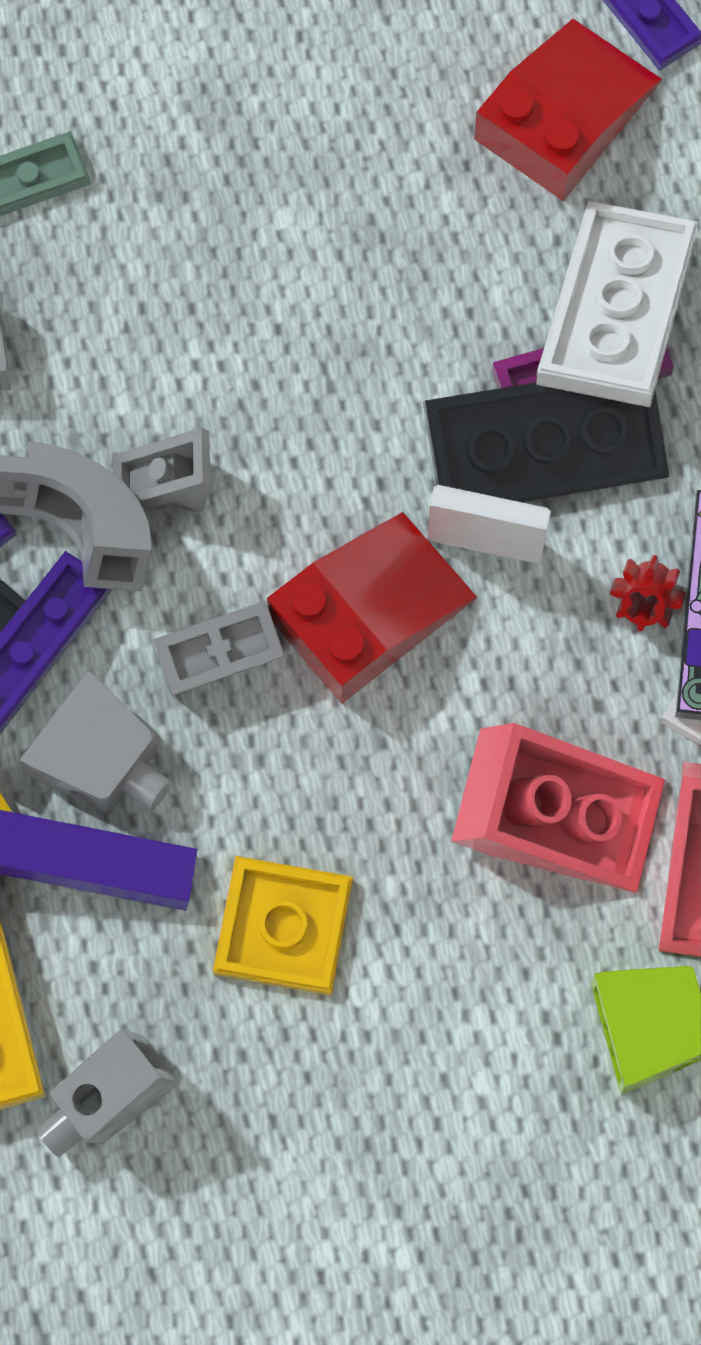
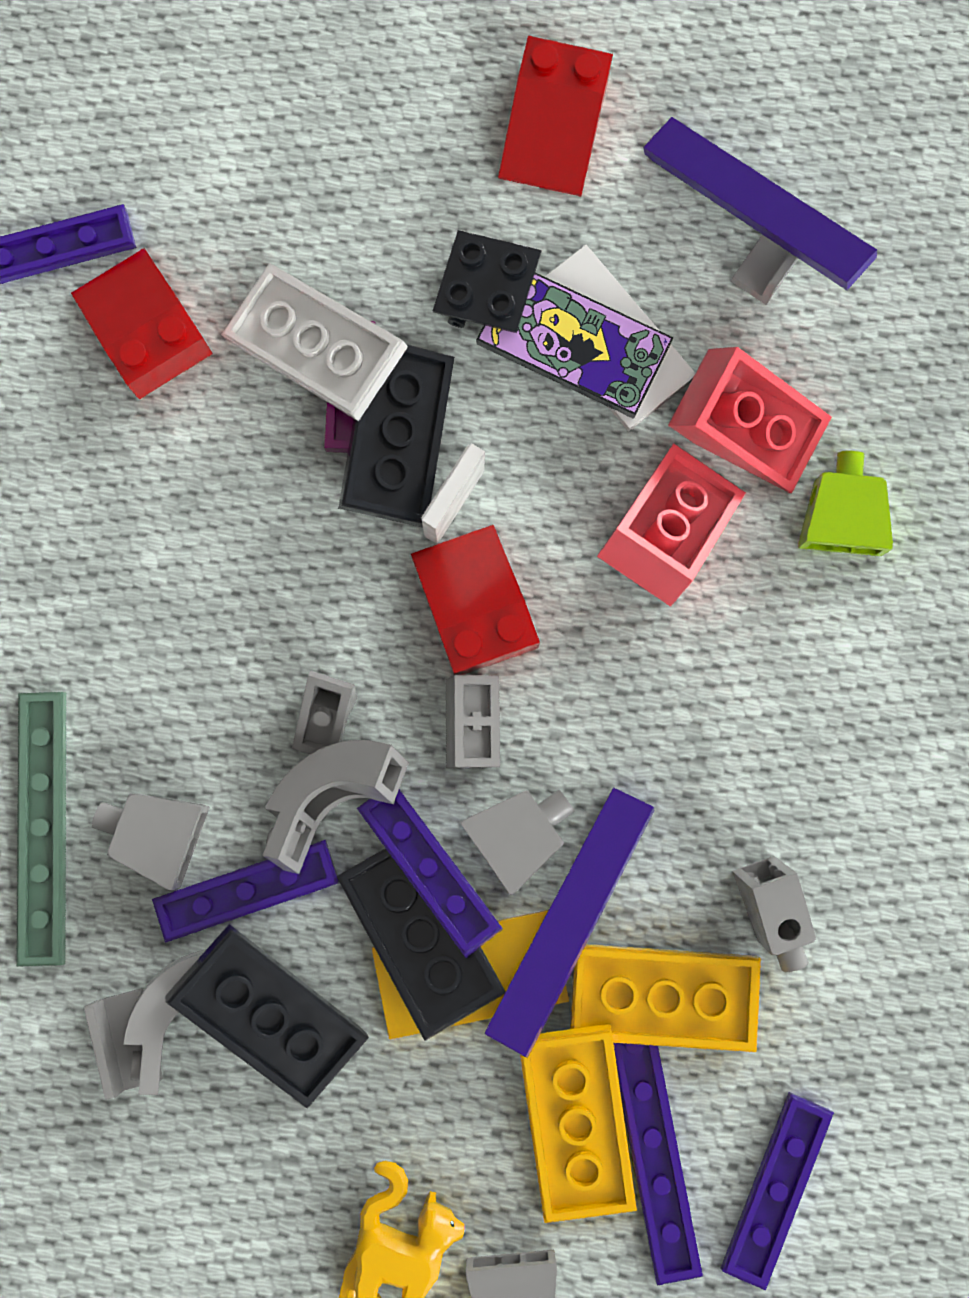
camera: 70 degrees left, 10 degrees up
(283, 925) = (687, 745): yellow tile -> none
(647, 593) = (539, 403): red gear -> none

